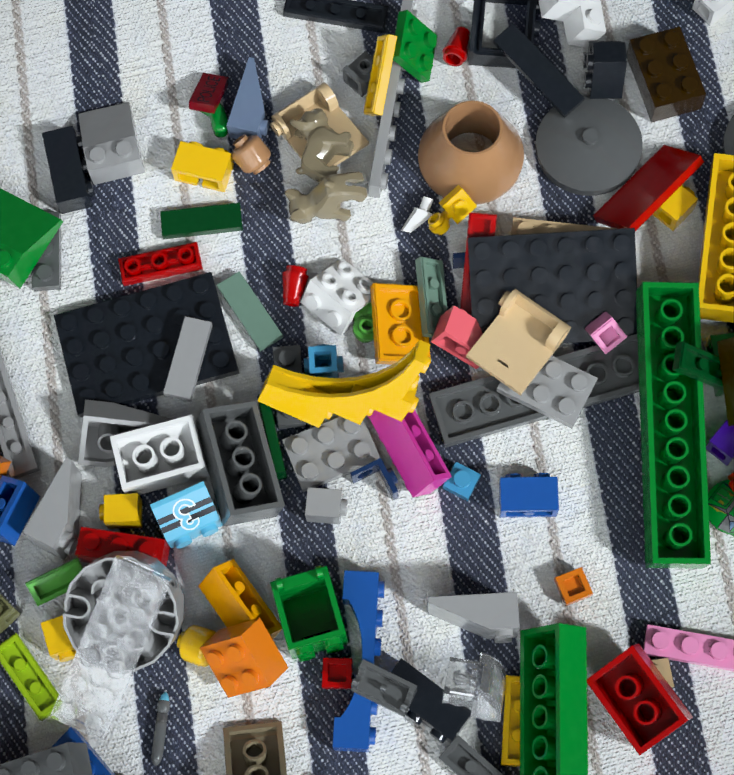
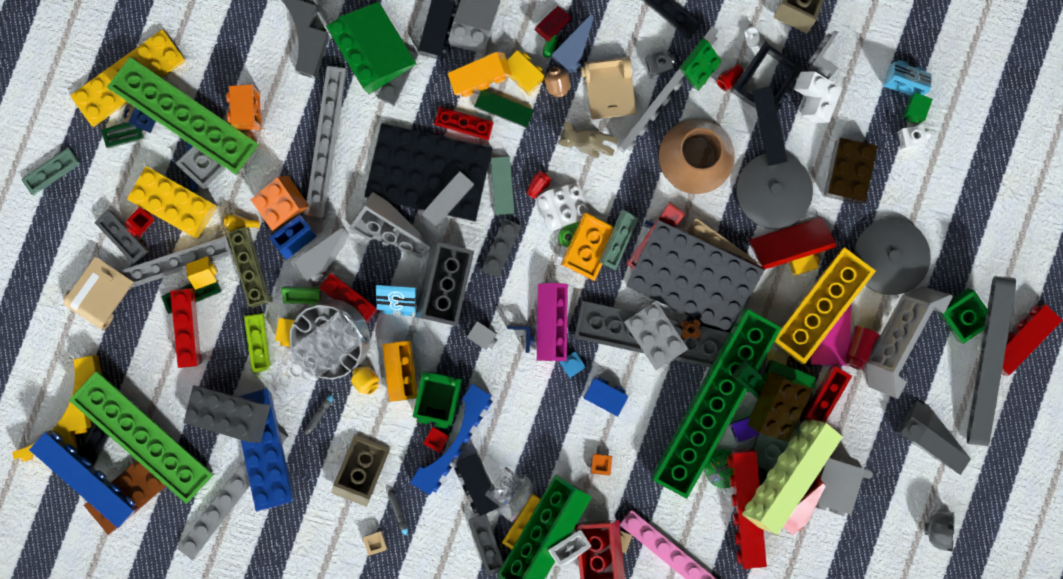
camera: 25 degrees right, 15 degrees up
(121, 511) = (360, 273): yellow brick -> none
(148, 191) = (479, 74): none -> light orange brick
(159, 456) = (399, 252): white slope -> none
(244, 657) = (385, 405): orange brick -> none
(272, 439) = (473, 274): dark green tile -> none
(317, 398) = (509, 270): yellow arch -> none
(321, 144) = (603, 102): dark tan animal -> none
(322, 356) = (529, 240): dark azure brick -> none
(329, 451) = (505, 302): light grey plate -> none
(380, 75) = (667, 74): yellow tile -> none
(384, 688) = (456, 467): dark grey hinge -> none
(418, 215) = (640, 180): white bar -> none
(456, 206) = (665, 187): yellow plate -> none
(457, 333) = (621, 276): coral slope -> none
(485, 615) = (540, 456): light grey slope -> none
(519, 338) = (654, 301): tan door -> none
(582, 360) = (694, 333): none -> reddish brown plate
(597, 711) = (570, 548): none -> white slope
(605, 332) = (710, 322): bright pink slope -> none
(606, 69) = (813, 147): black brick -> none

